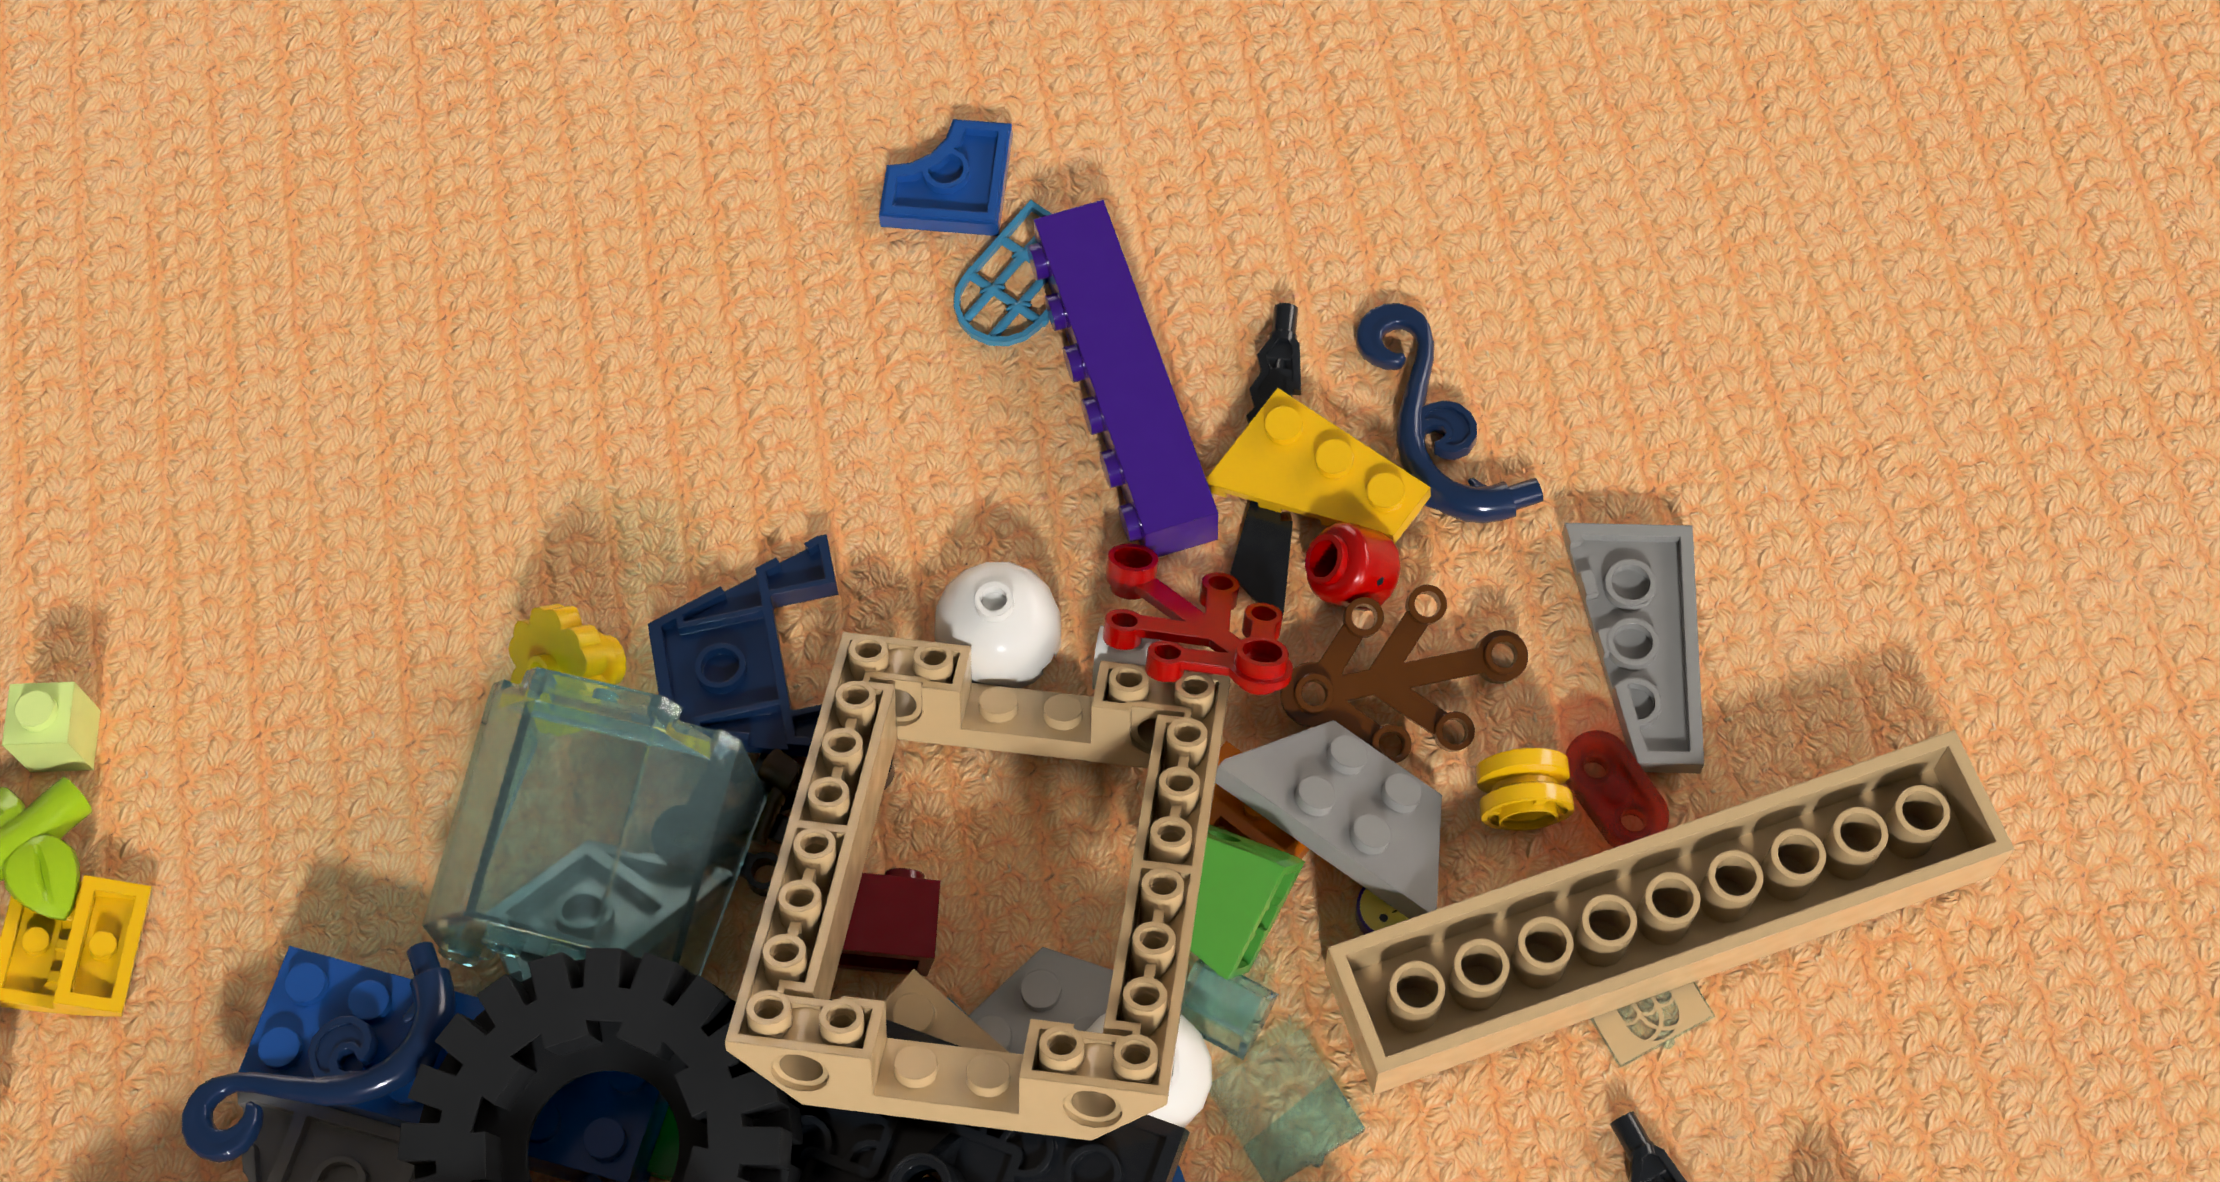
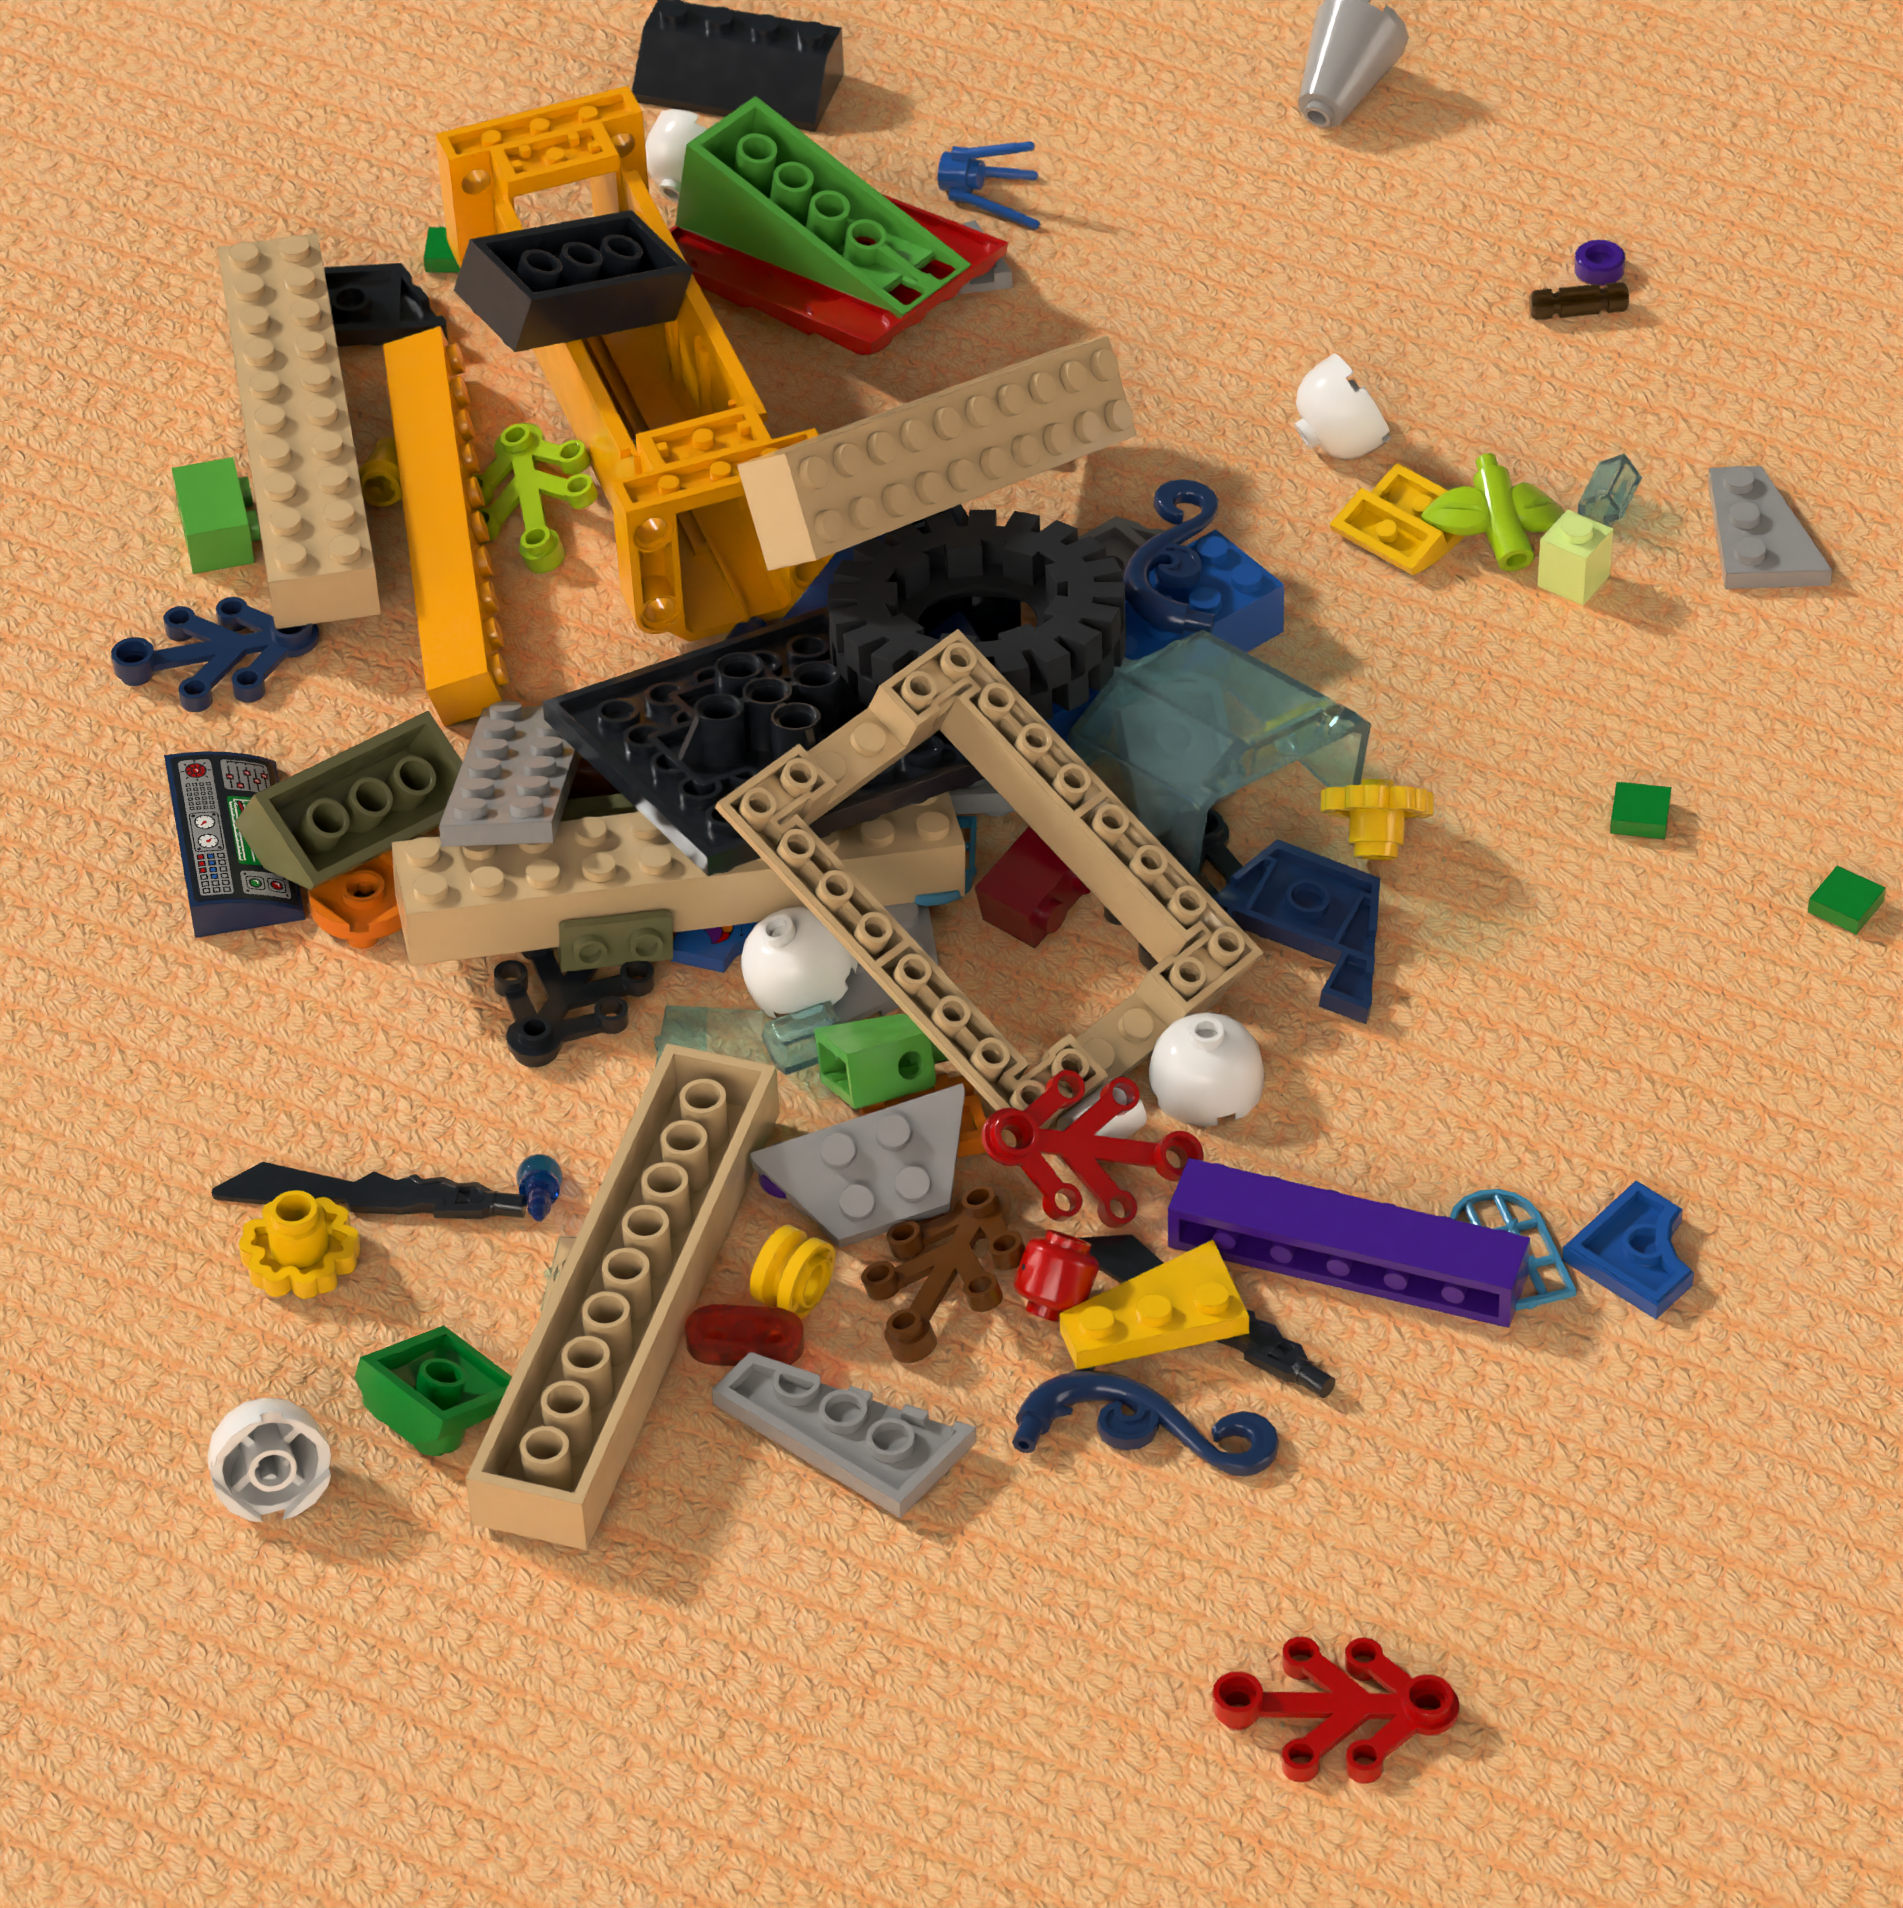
camera: 125 degrees right, 20 degrees down
(389, 479) = (1640, 810): none -> green tile
(404, 252) = (1846, 899): none -> green tile
(1574, 1135) = (540, 1180): none -> clear blue bar
(1596, 102) = (1342, 1705): none -> red plant
(1900, 1003) = (431, 1389): none -> green slope
(2110, 1088) = (269, 1459): none -> white cylinder

